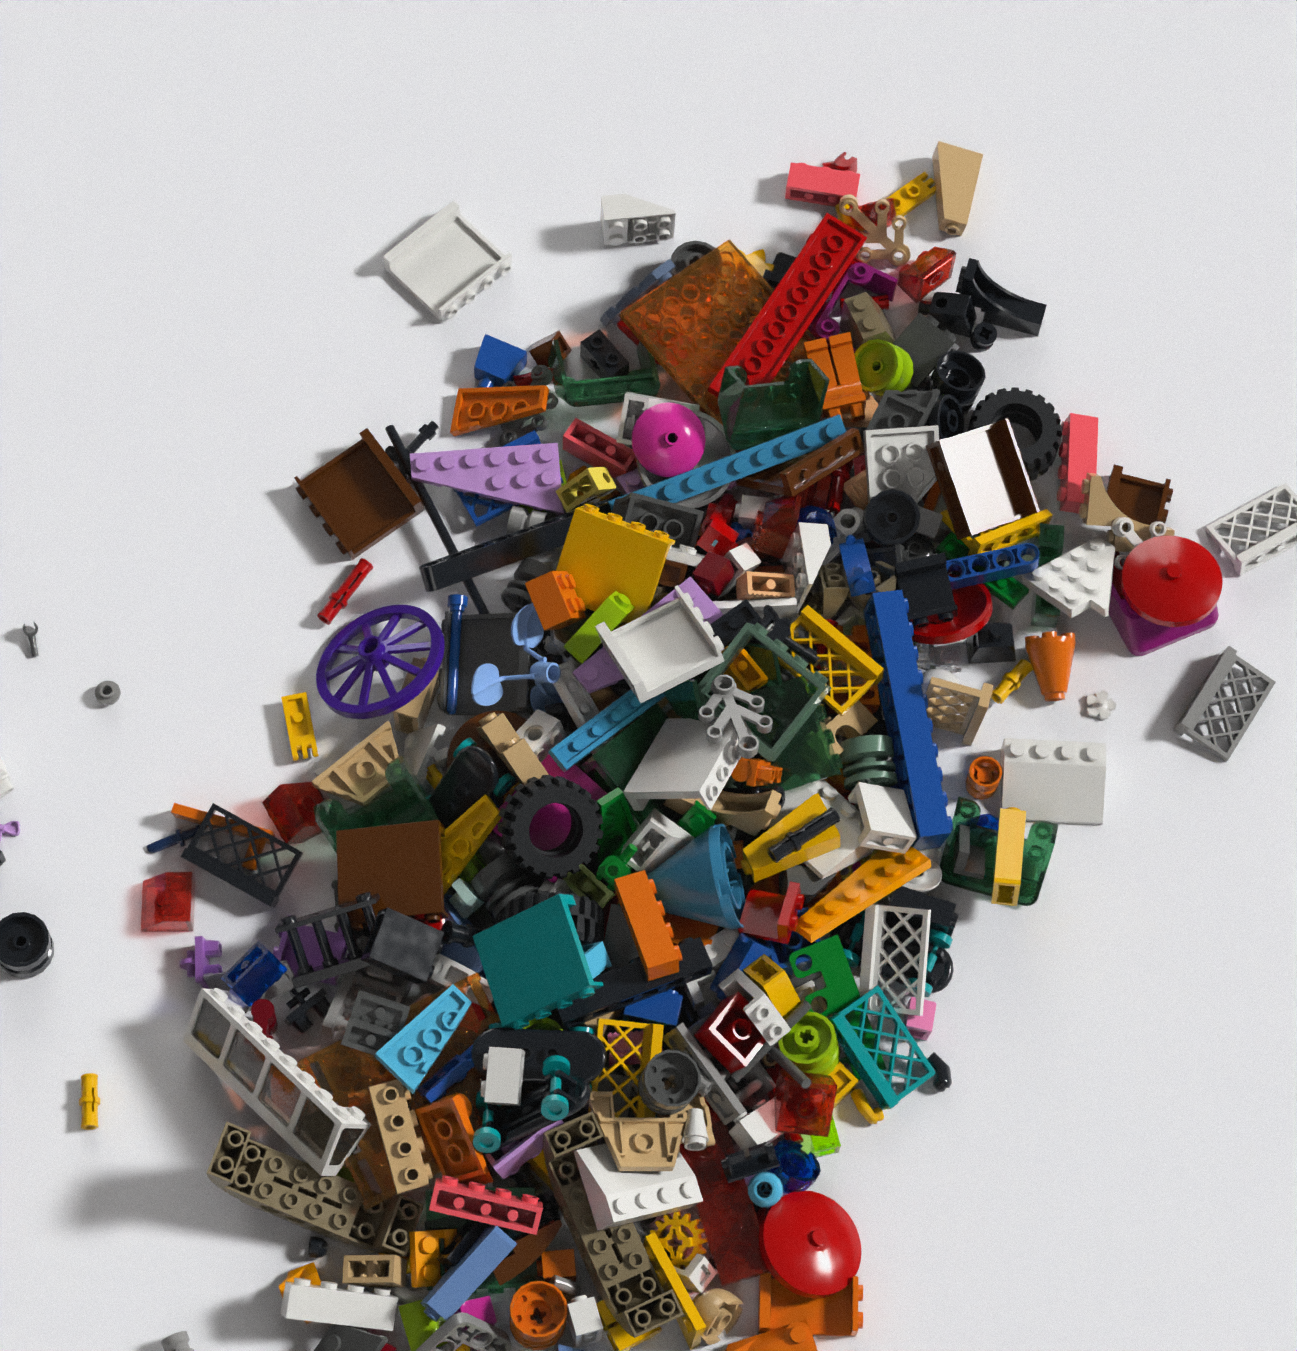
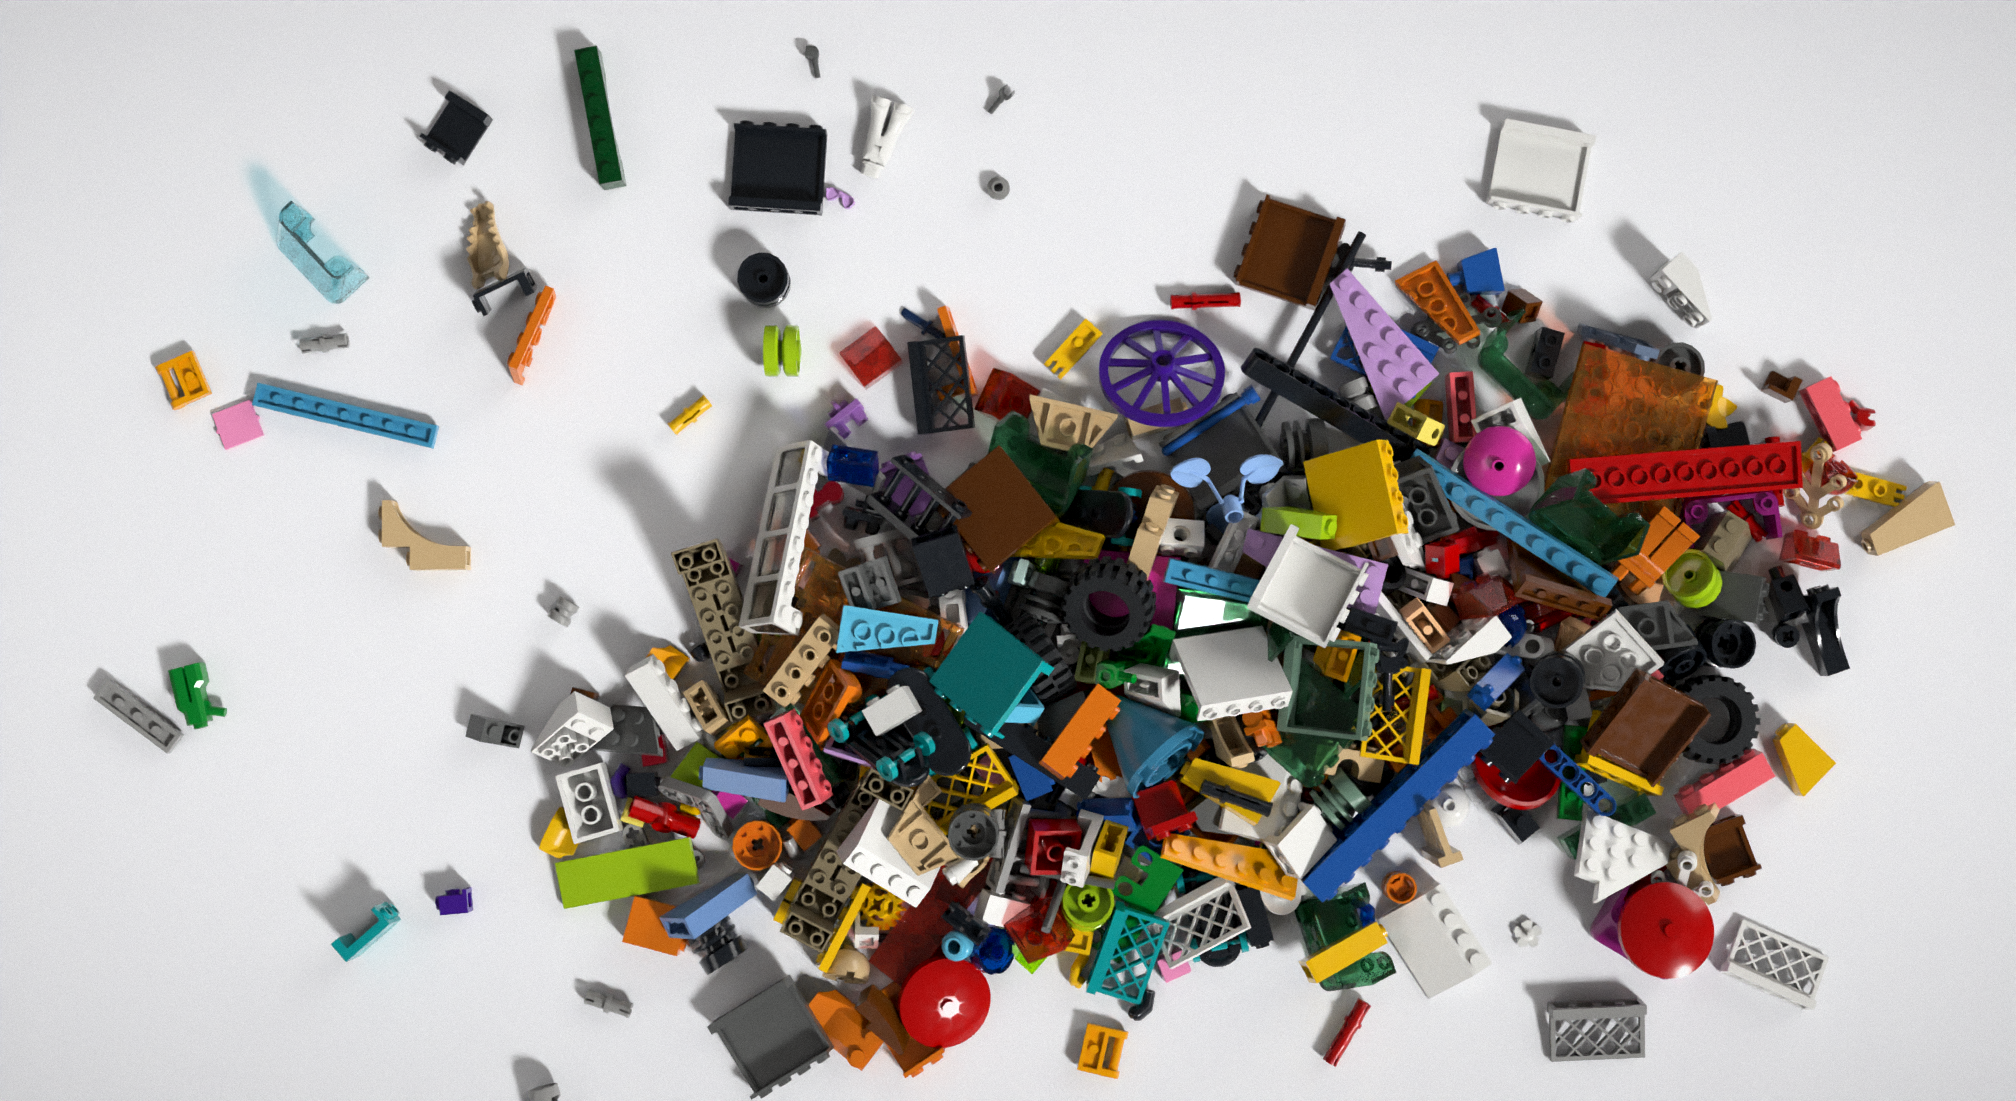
camera: 60 degrees right, 20 degrees up
(99, 971) = (785, 350): none -> lime wheel
(556, 600) = (1295, 475): orange brick -> none
(713, 573) = (1405, 578): dark red brick -> none
(725, 689) = (1290, 683): light grey plant -> none
(773, 207) = (1781, 387): none -> reddish brown panel
(785, 1309) = (882, 1018): none -> reddish brown slope
(950, 1142) = (1094, 1050): none -> light orange plate
(967, 858) = (1324, 919): dark grey panel -> none
(1011, 681) = (1496, 854): yellow pin -> none
(1051, 662) = (1533, 876): orange cone -> none
(1089, 918) = (1349, 1028): none -> red pin
(1097, 392) = (1801, 758): none -> yellow slope

